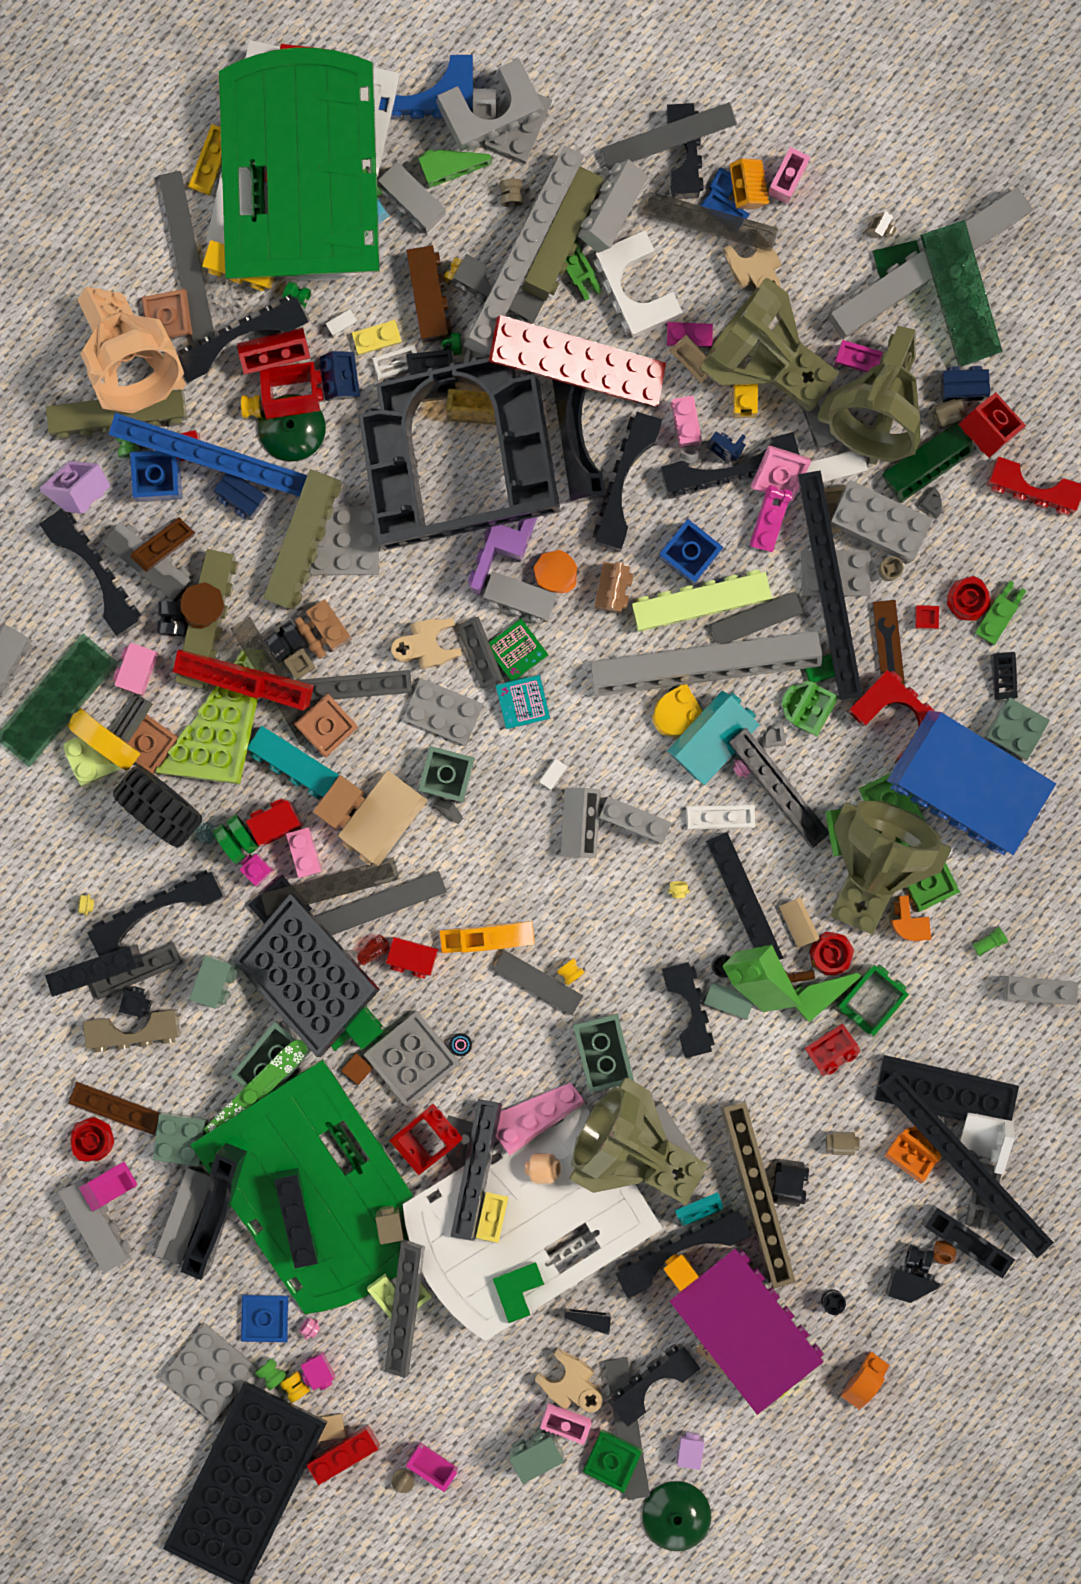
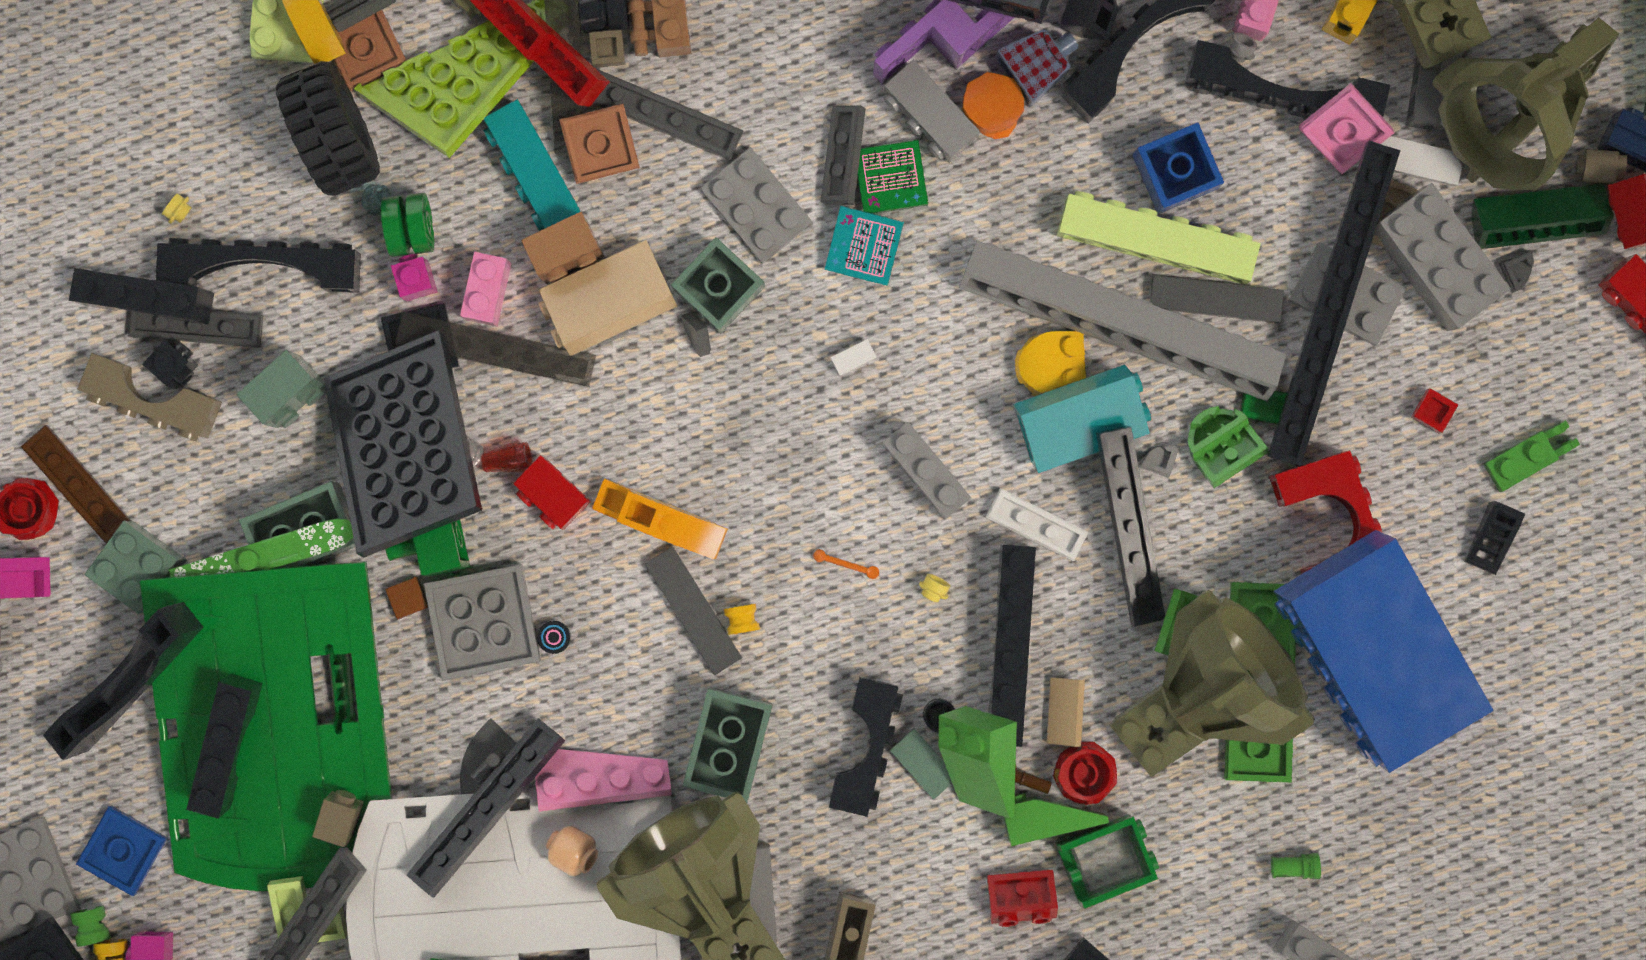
camera: 25 degrees right, 0 degrees up
(184, 1216) = (86, 667): piece -> none
(275, 822) = (467, 229): red brick -> none
(309, 1328) = (171, 894): bright pink plate -> none
(383, 903) = (550, 406): dark grey tile -> none
(419, 1158) = (425, 754): red window -> none
(423, 644) = (777, 107): tan piece -> none
(492, 1217) = (473, 879): light yellow plate -> none
(569, 532) = (1037, 62): none -> sand blue torso
(580, 822) = (855, 436): light grey brick -> none
(612, 587) = (1055, 160): medium nougat brick -> none
(634, 900) = (820, 556): none -> orange hinge
(723, 447) = (1292, 60): dark blue bracket -> none
(740, 769) = (1095, 476): bright pink plate -> none
(770, 518) = (1301, 180): dark pink plate -> none
(857, 356) = (1522, 32): dark pink panel -> none
(888, 637) = (1371, 410): reddish brown tile -> none
(892, 564) = (1426, 320): dark tan wheel -> none
(906, 927) = (1200, 792): orange brick -> none
(972, 602) = (1508, 419): red hat -> none
(1016, 729) = (1477, 613): sand green brick -> none

